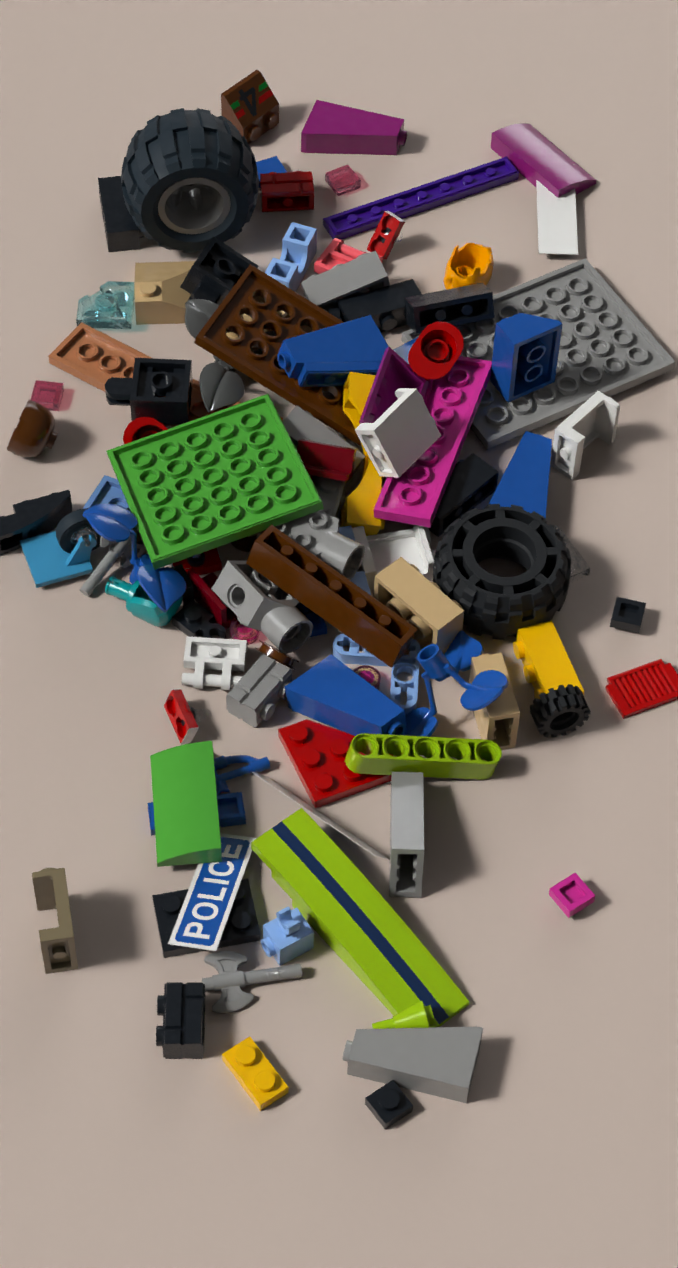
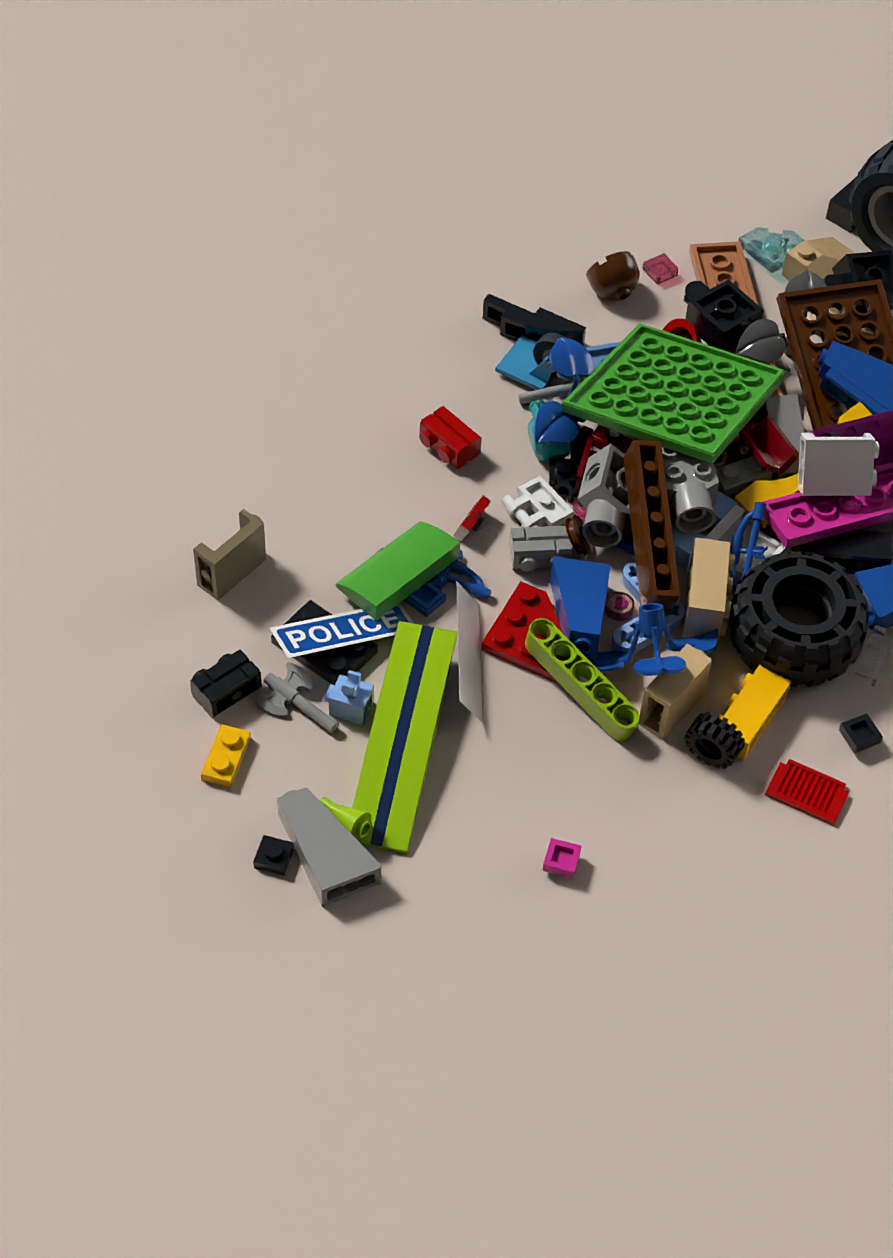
camera: 50 degrees right, 0 degrees up
(80, 671) = (449, 437): none -> red brick
(406, 834) = (505, 713): light grey slope -> none
(412, 548) = (757, 552): none -> blue piece

